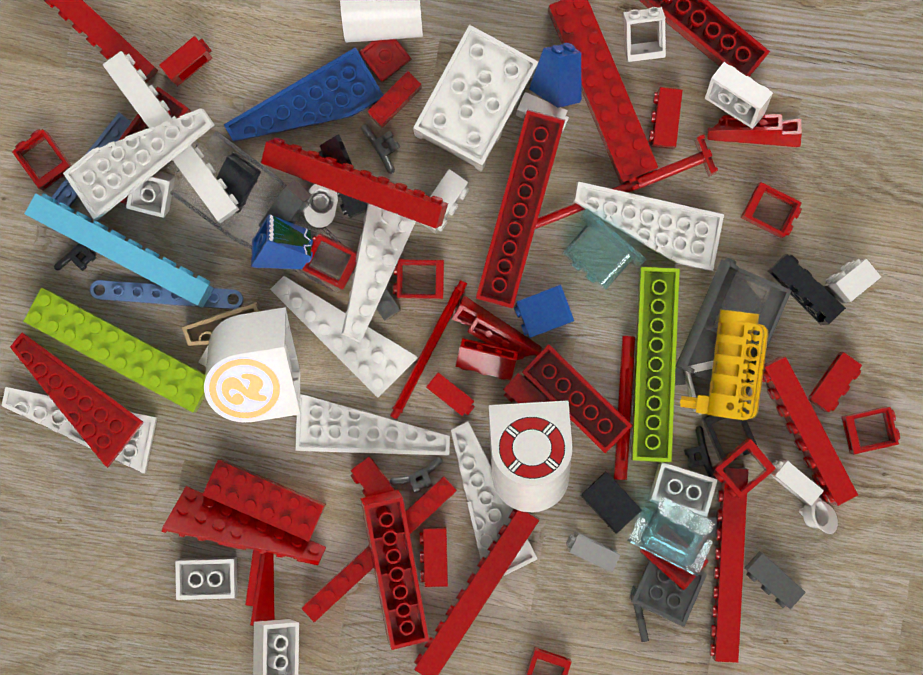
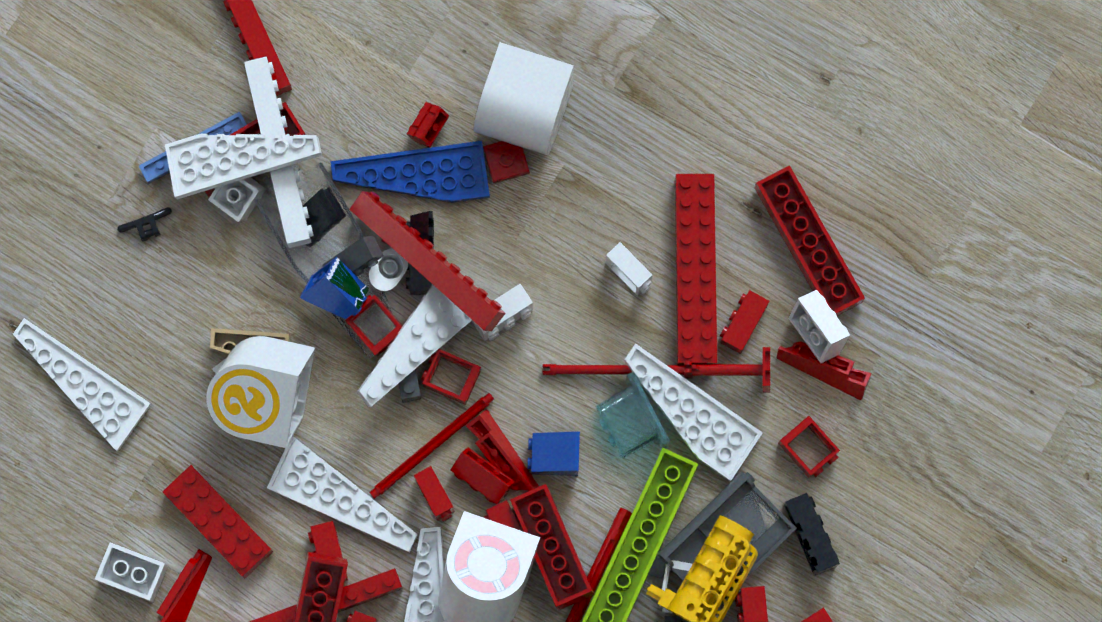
camera: 25 degrees right, 10 degrees down
(53, 175) = (156, 143): red window -> none
(94, 415) = (93, 373): red wing -> none
(114, 247) = (183, 232): medium azure brick -> none
(117, 349) = (142, 326): lime brick -> none
(158, 295) = (209, 294): medium blue plate -> none
(186, 60) = (321, 90): red window -> none
(213, 521) = (175, 533): red wing -> none
(299, 52) = (427, 124): none -> red brick
(373, 360) = (373, 429): white wing -> none
(377, 144) = (465, 236): dark grey piece -> none
(394, 99) = (498, 202): red brick -> none
(421, 474) = (371, 563): dark grey piece -> none
(475, 97) = (571, 229): white container -> none
(520, 208) = (571, 347): red brick -> none
(558, 75) = (658, 240): blue slope -> none
(647, 50) = (749, 251): white window -> none
(852, 281) = (856, 542): white brick -> none

